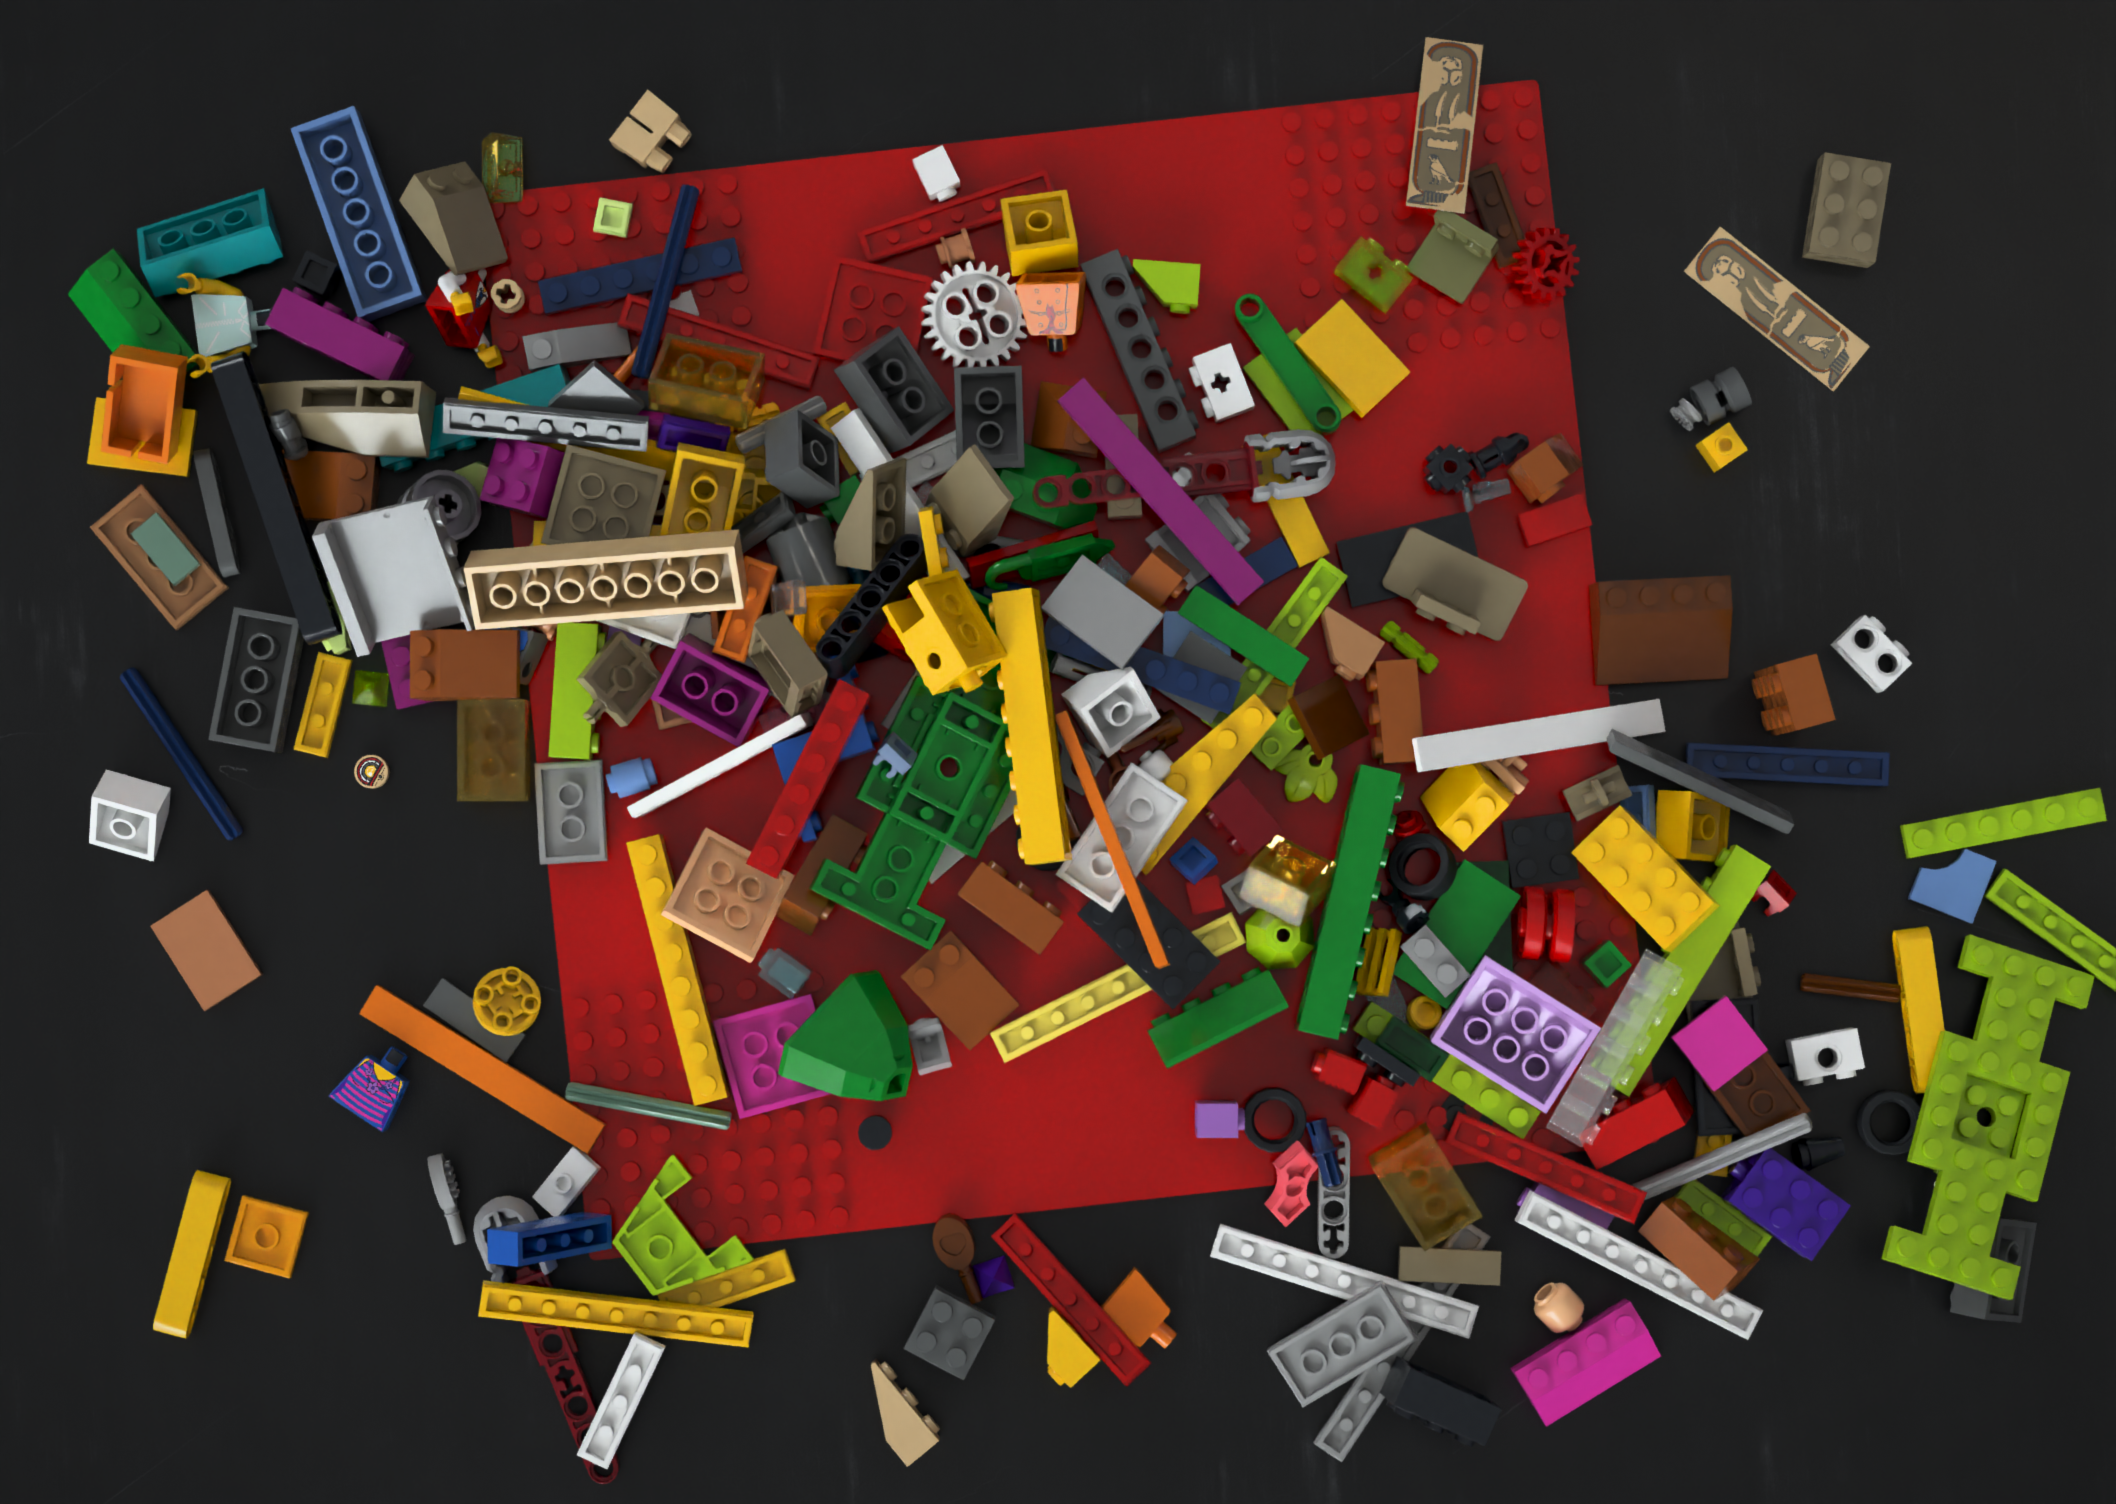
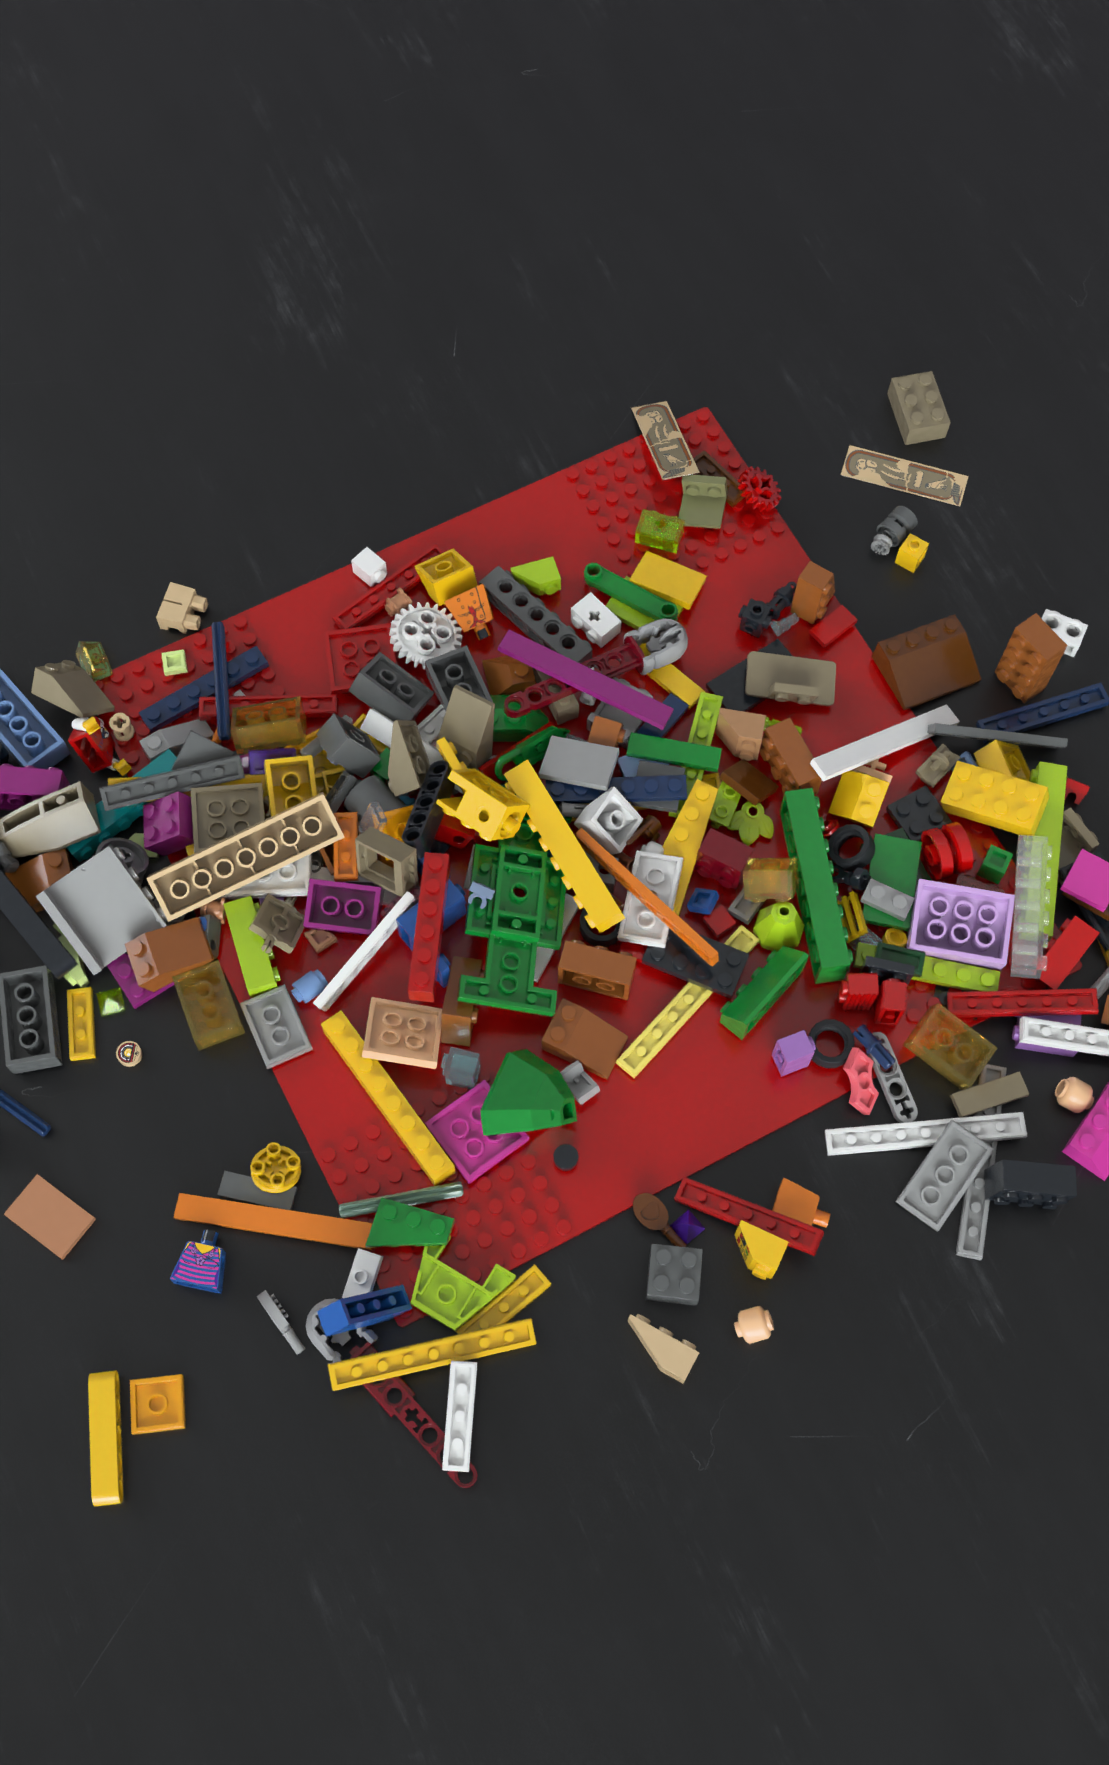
camera: 20 degrees left, 20 degrees down
(642, 1147) = (408, 1225): none -> green wing
(1022, 1431) = (754, 1324): none -> light nougat head

